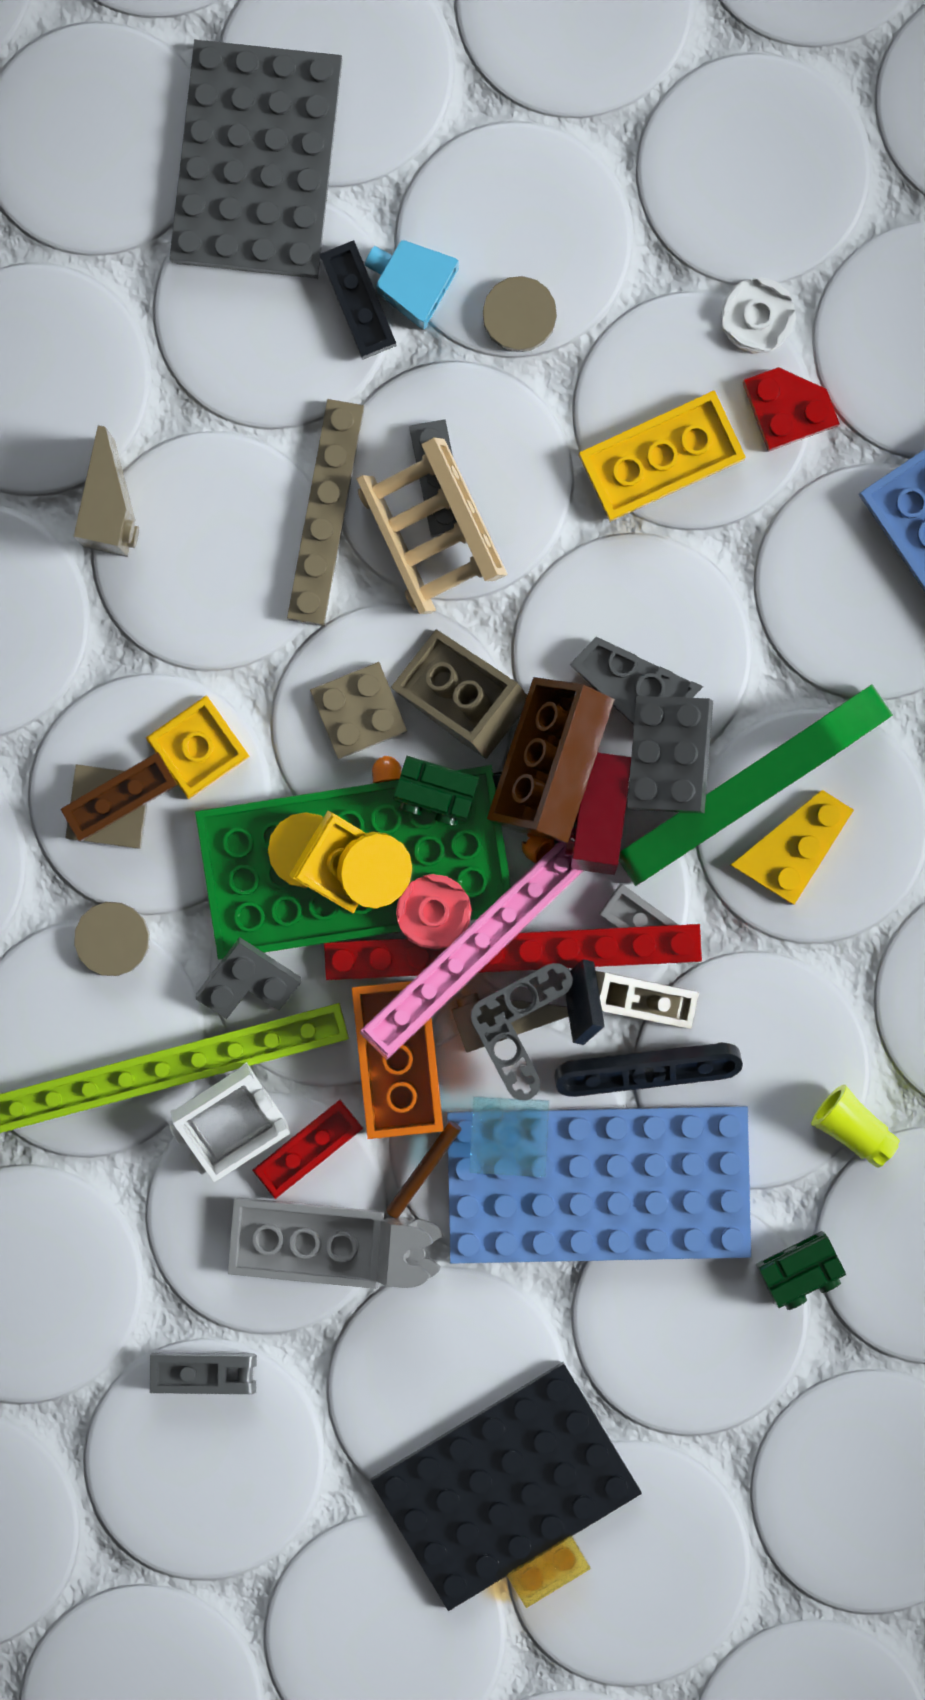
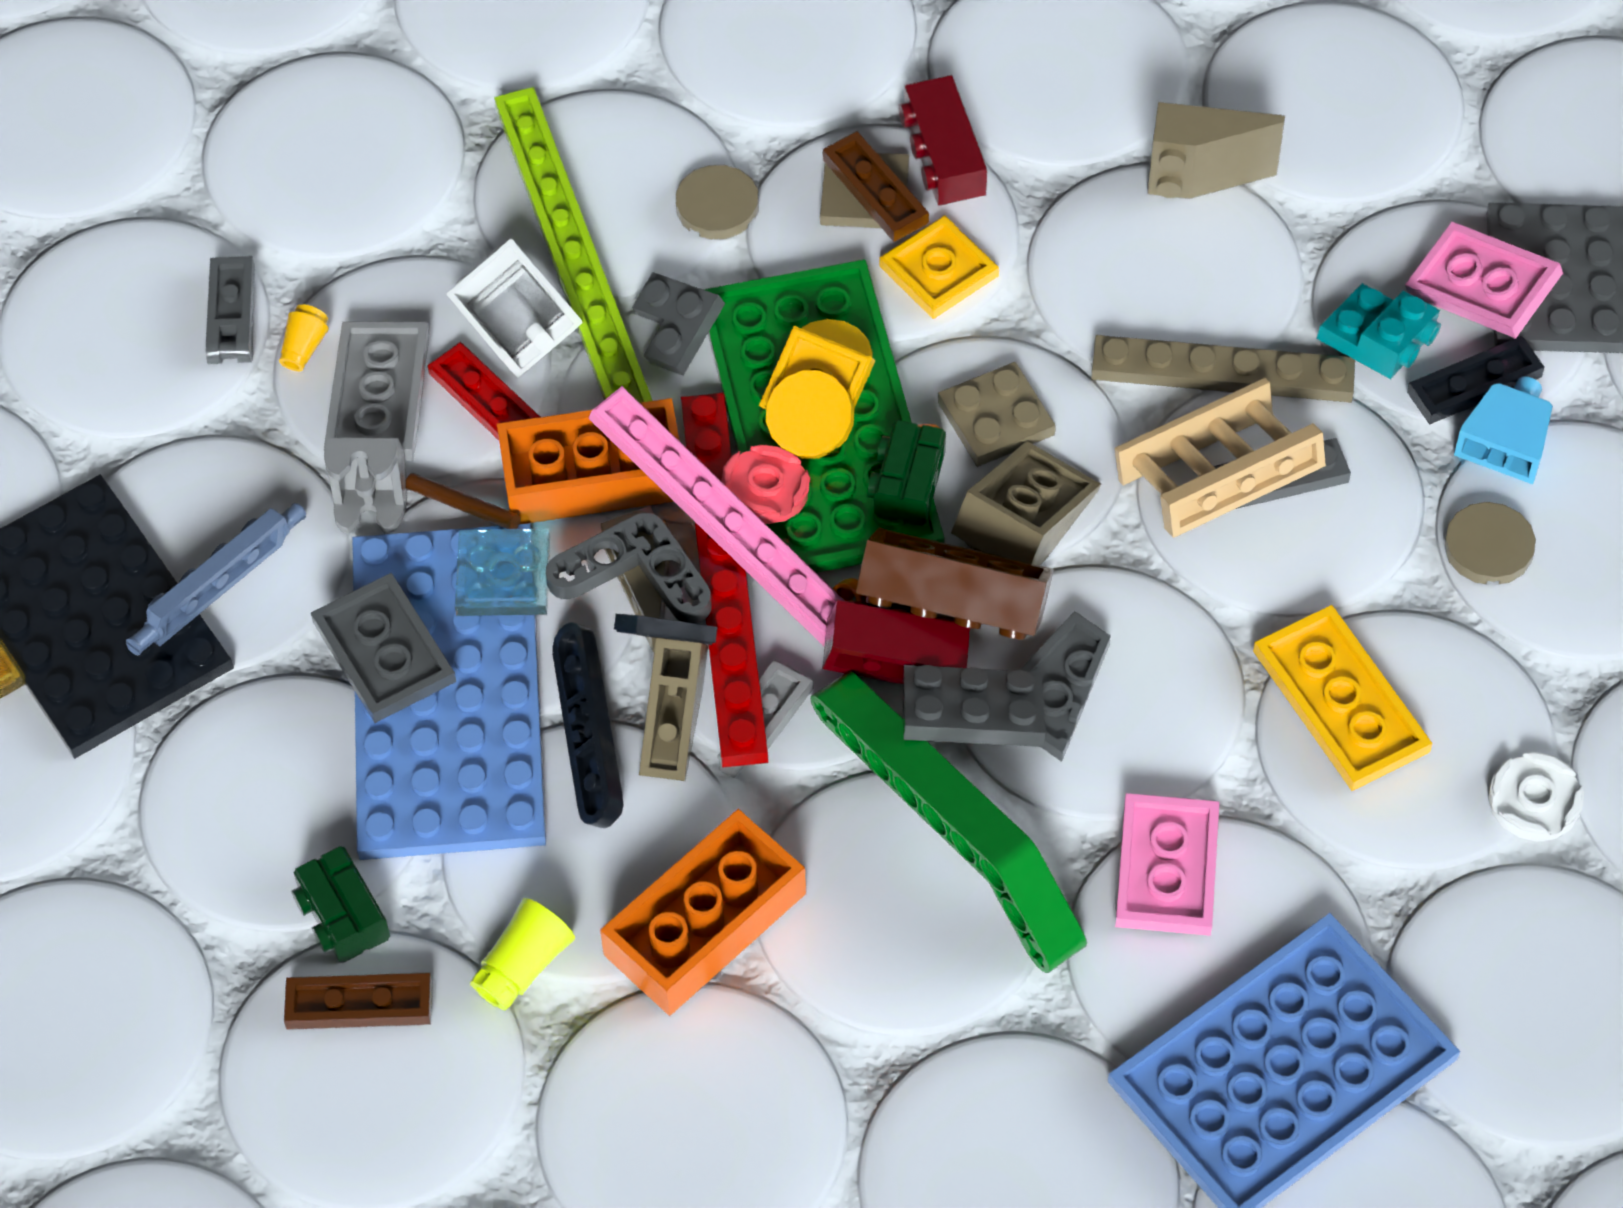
camera: 85 degrees right, 30 degrees down
(64, 732) = (943, 140): none -> dark red brick
(238, 1309) = (302, 335): none -> yellow cone
(263, 277) = (1484, 279): none -> bright pink plate
(302, 372) = (1381, 330): none -> teal plate
(504, 1391) = (214, 577): none -> sand blue plate
(576, 1237) = (383, 647): none -> dark grey plate
(788, 407) = (1424, 836): red plate -> none
(796, 847) = (872, 876): yellow wing -> none
(804, 613) = (1167, 864): none -> bright pink plate
(833, 982) = (703, 911): none -> orange brick
(883, 1255) = (358, 1001): none -> reddish brown plate

